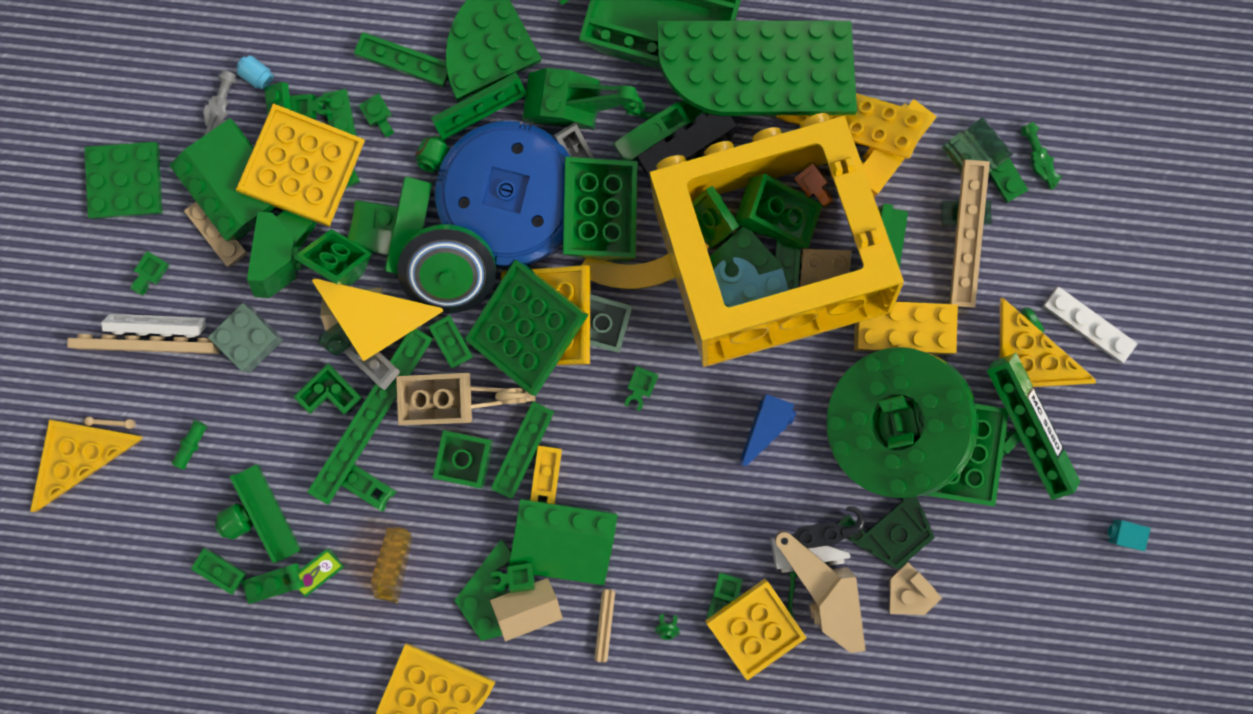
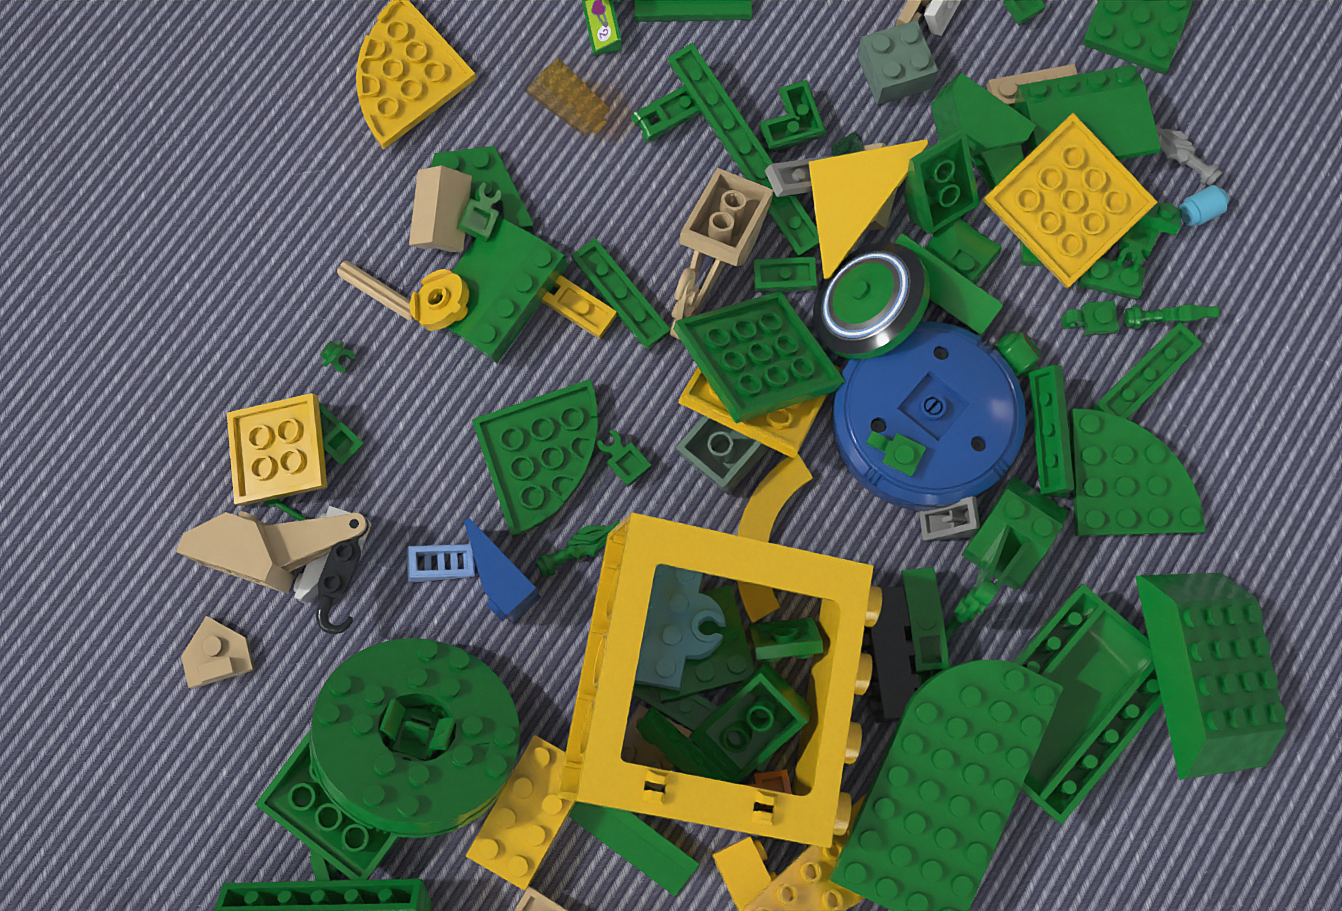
camera: 110 degrees right, 10 degrees down
(346, 52) = (1185, 313): none -> green piece
(463, 459) = (643, 222): green brick -> none
(551, 196) = (900, 453): none -> green plate
(593, 561) = (449, 309): none -> yellow plate
(600, 209) = (860, 506): green slope -> none
(665, 447) = (539, 452): none -> green plate
(710, 383) = (585, 542): none -> green piece
(781, 471) = (426, 552): none -> light blue slope
(824, 238) = (677, 747): none -> green plate
(895, 535) = (291, 668): dark green wing -> none

